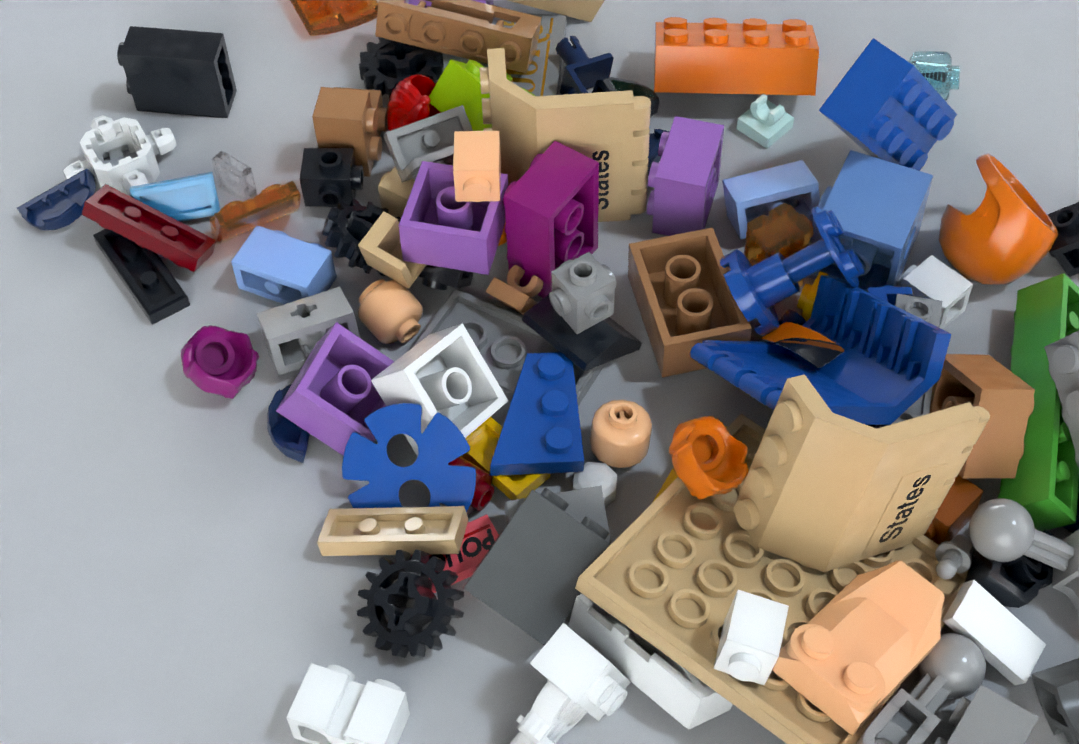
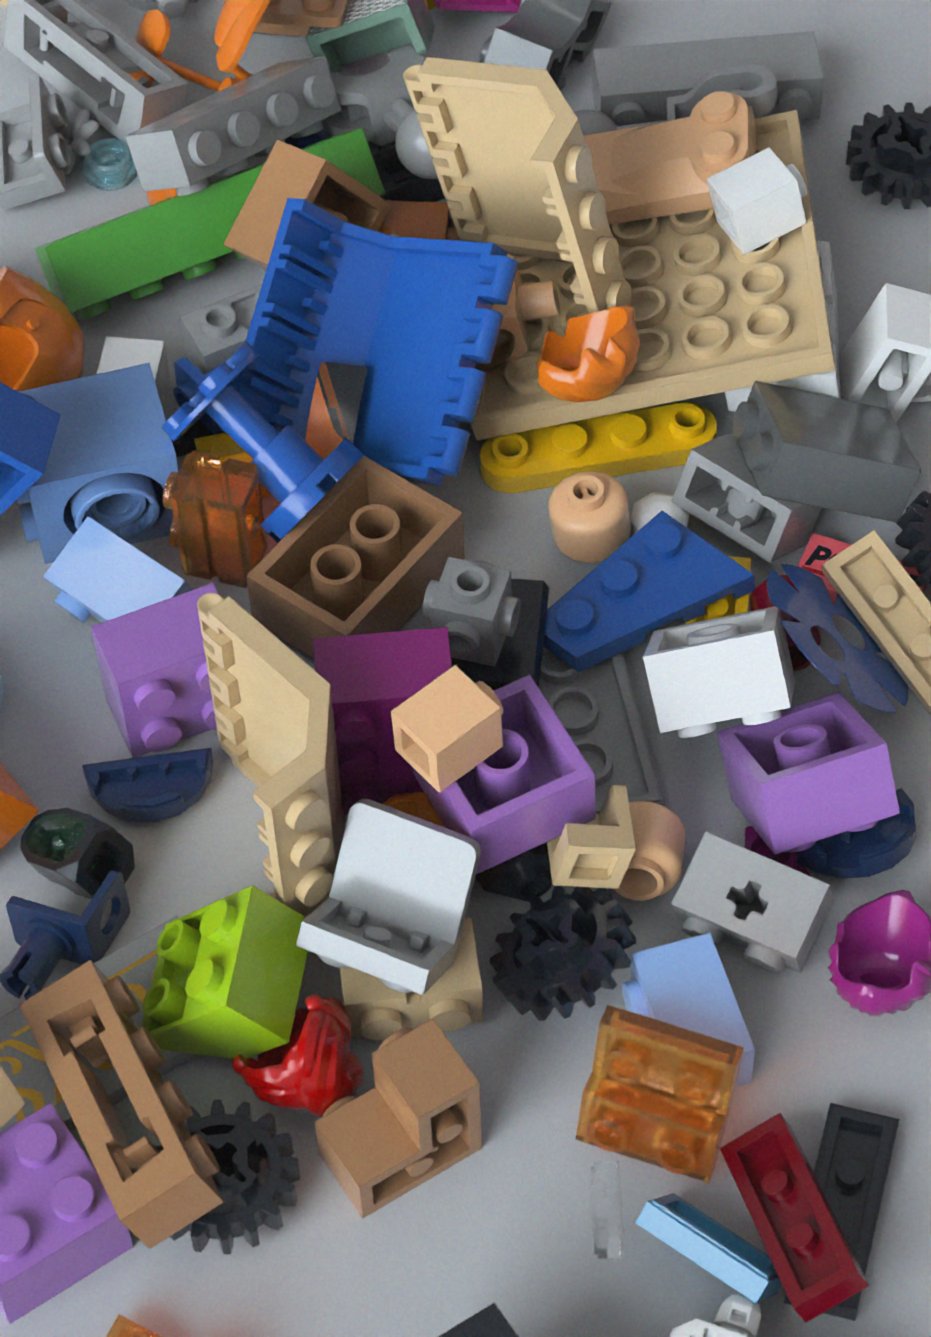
camera: 130 degrees left, 0 degrees up
(329, 176) = (515, 1076): black brick -> none

